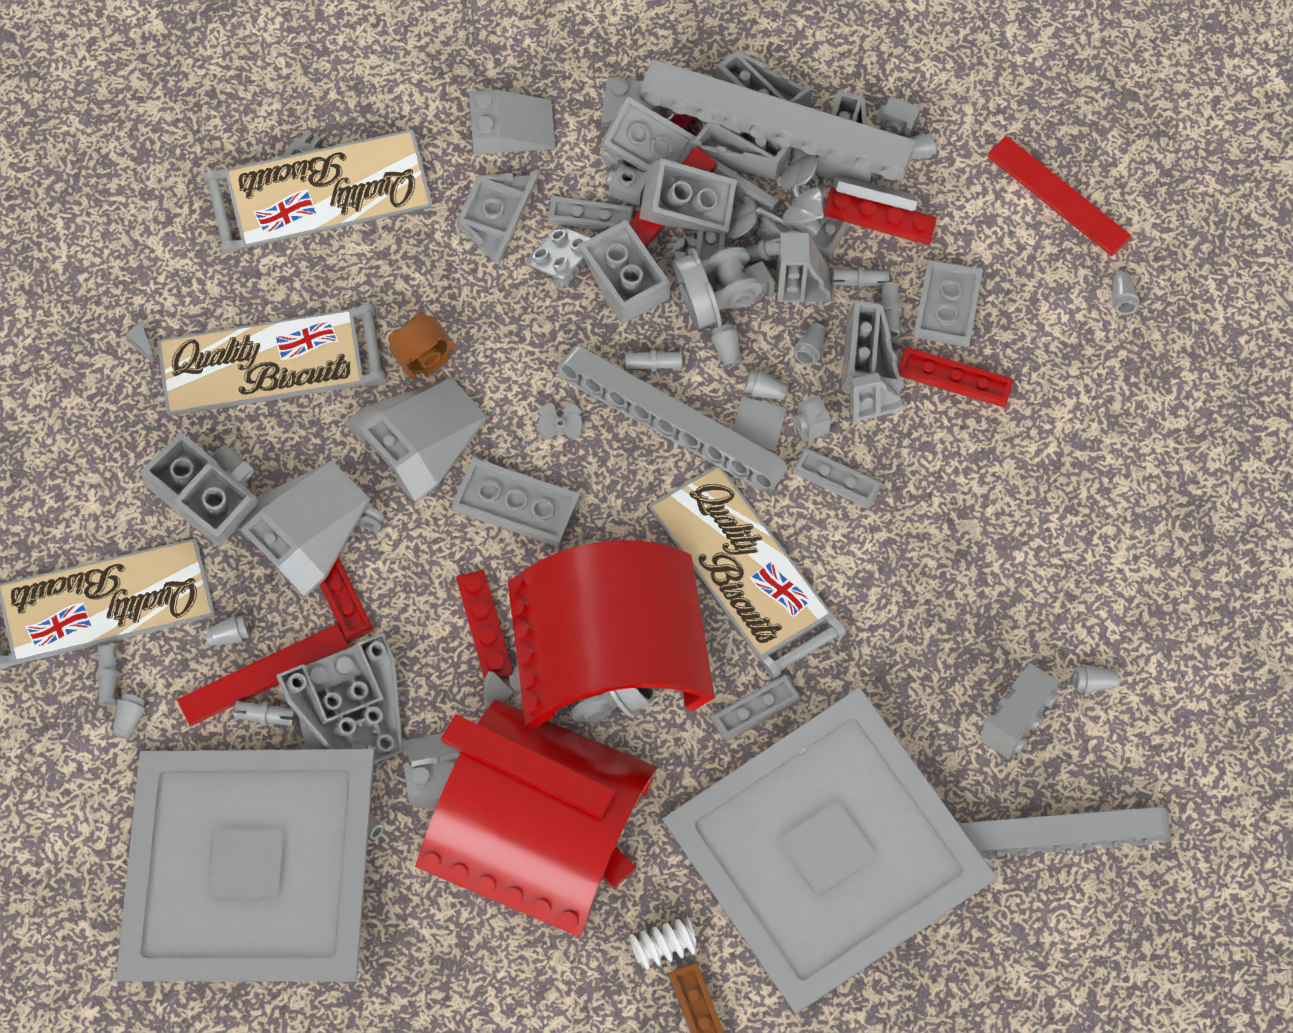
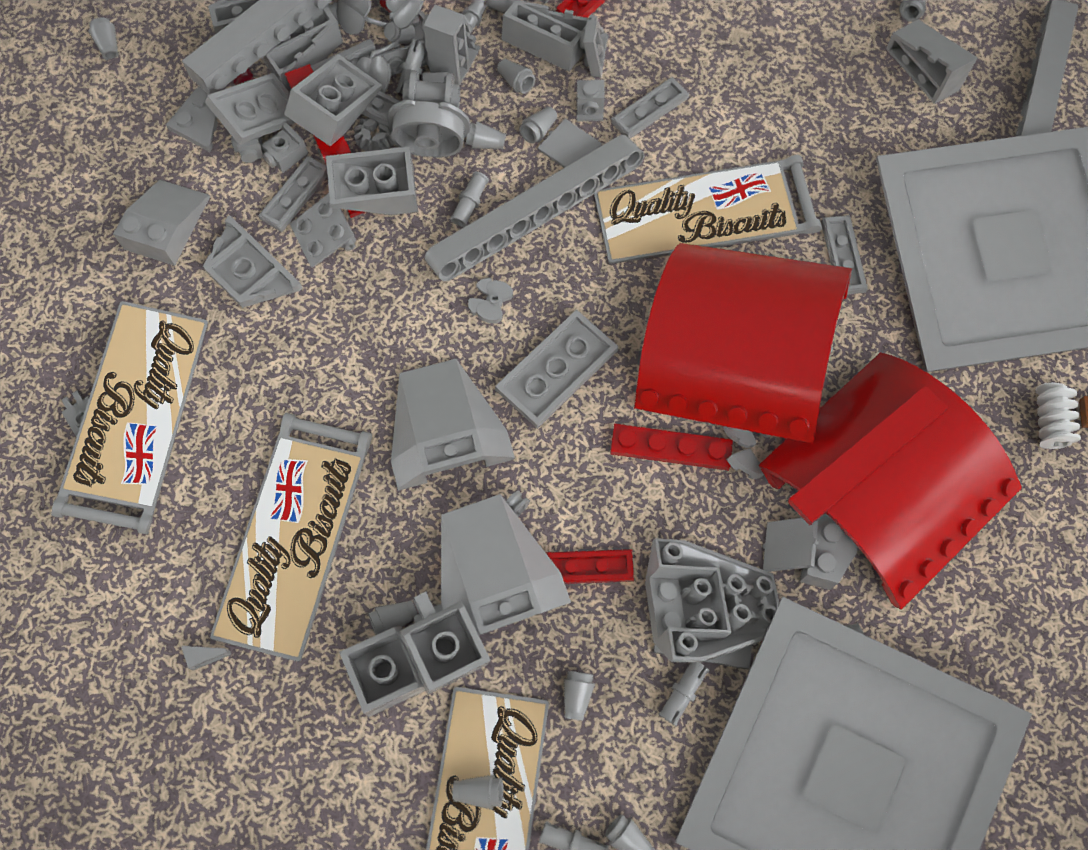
camera: 65 degrees left, 5 degrees up
(118, 587) = (479, 791): none -> light grey cone
(258, 676) = (638, 680): red tile -> none
(421, 345) = (357, 382): dark orange brick -> none

